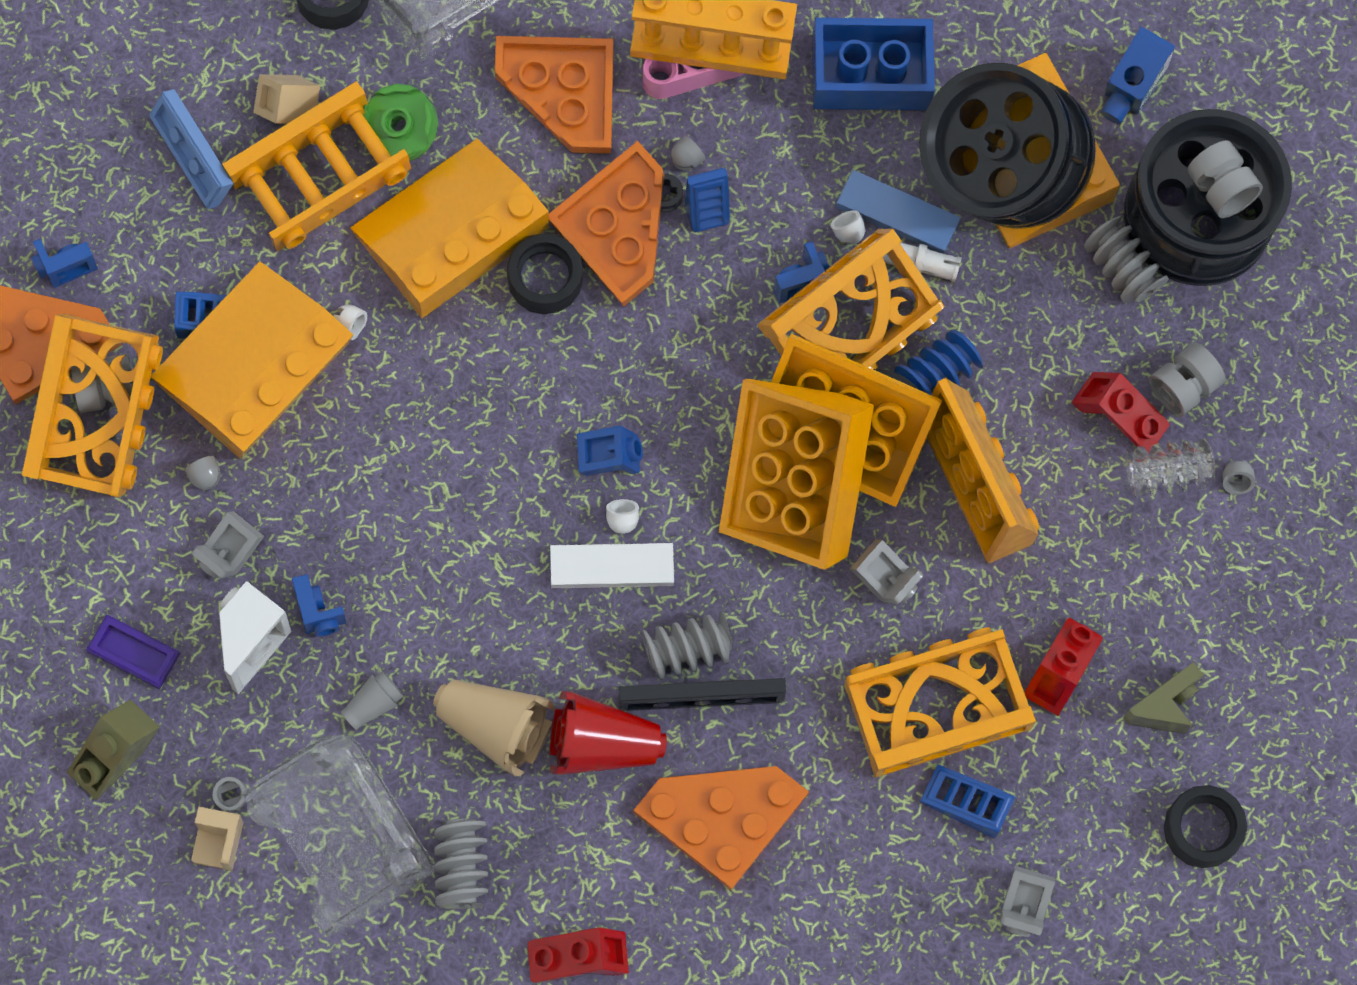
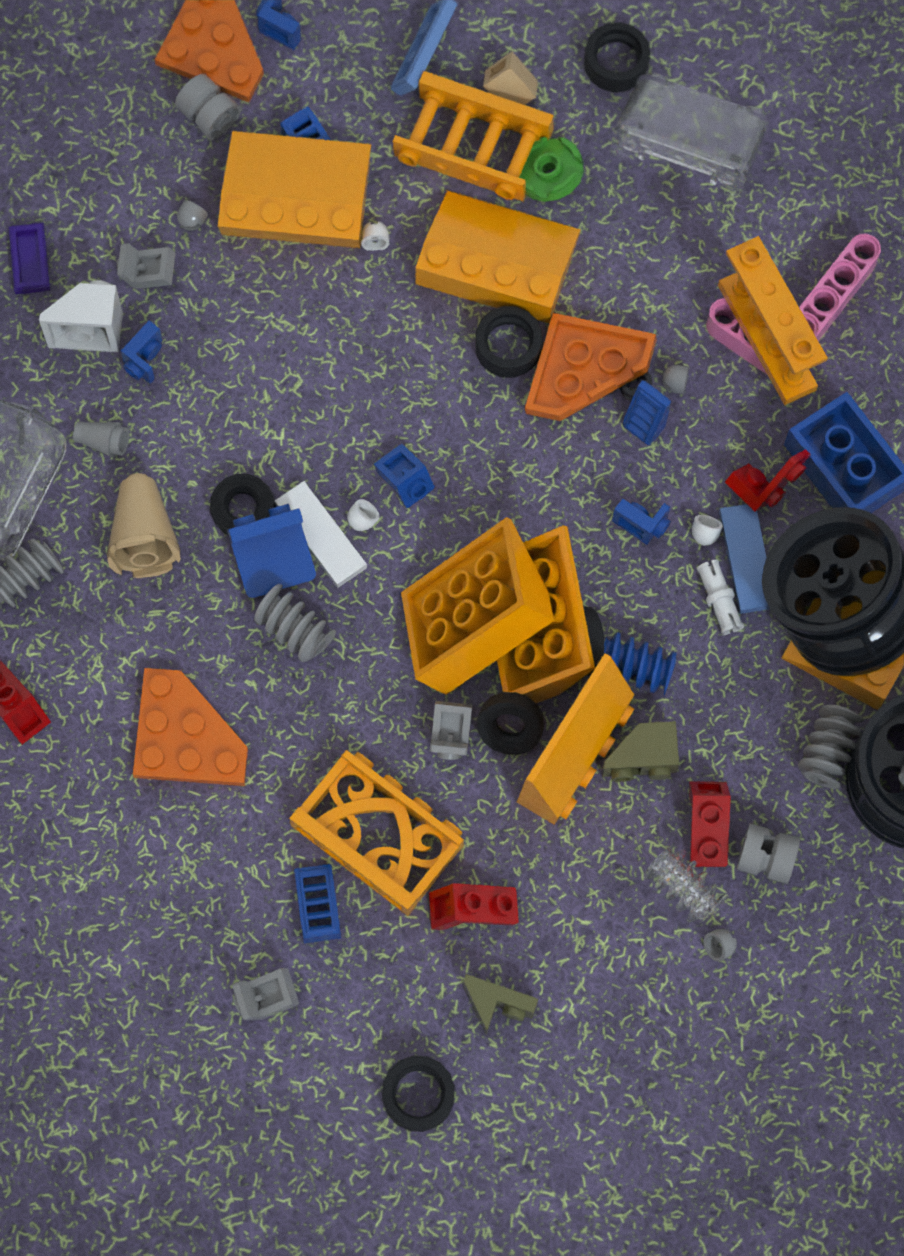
camera: 60 degrees right, 0 degrees up
(48, 442) = (157, 82): light orange fence -> none
(528, 593) = (237, 485): none -> black tyre
(562, 85) = (665, 259): orange plate -> none
(601, 737) = (179, 608): red cone -> none
(603, 618) = (271, 551): none -> blue bracket
(702, 694) = (264, 658): black tile -> none
(841, 160) = (756, 491): none -> red bracket
(868, 261) = (679, 554): light orange fence -> none
(934, 526) = (516, 705): none -> black tyre
(1021, 417) = (646, 750): none -> olive slope

